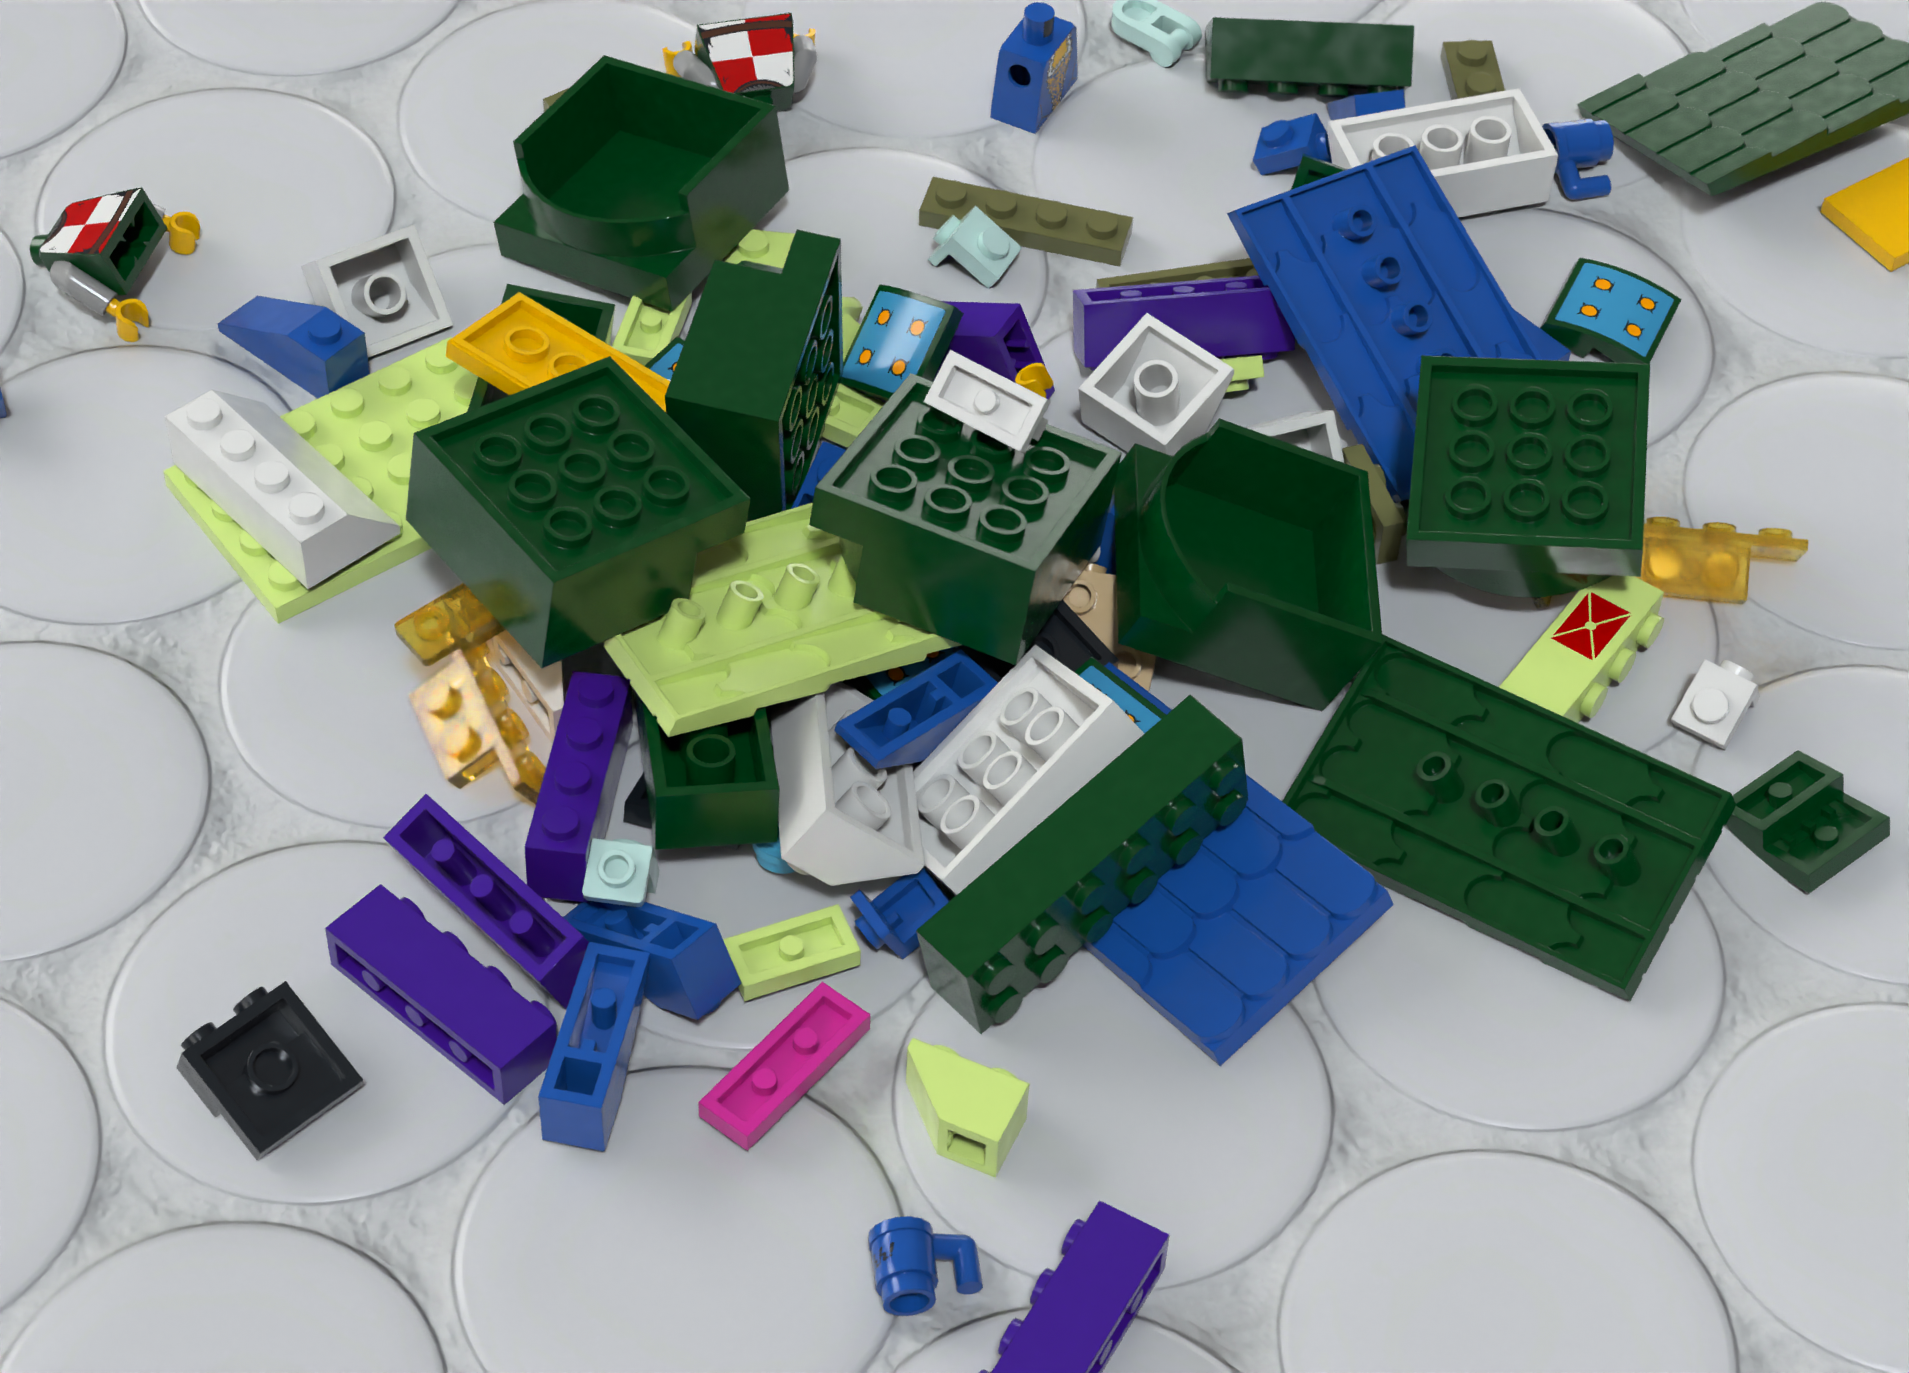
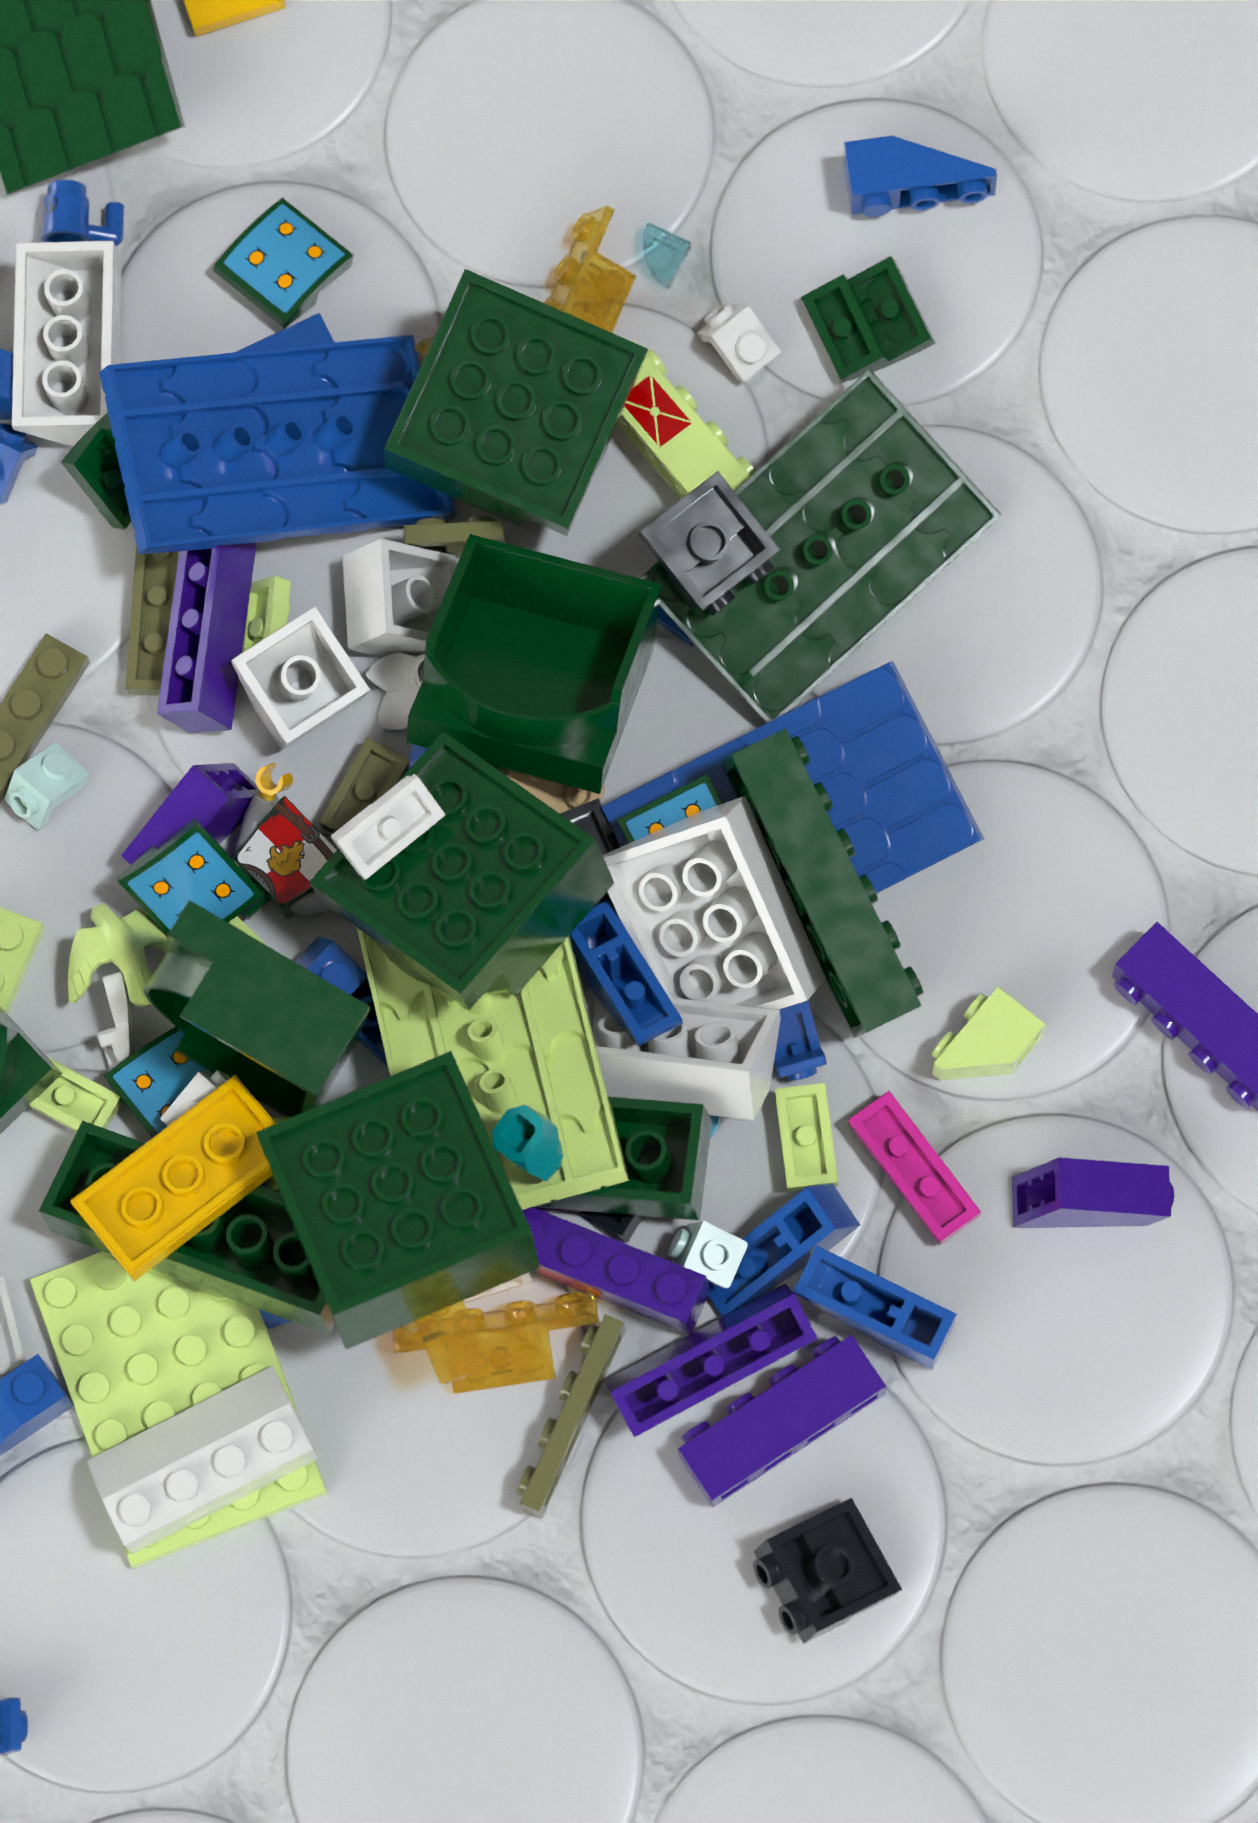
camera: 65 degrees left, 25 degrees up
(386, 795) = (561, 1435): none -> olive plate
(673, 613) = (529, 1141): none -> teal rock
(801, 1249) = (1091, 1194): none -> dark purple slope
(905, 1263) = (1120, 1120): blue piece -> none
(1444, 673) = (709, 545): none -> plate
(1785, 622) = (664, 253): none -> clear light blue tile

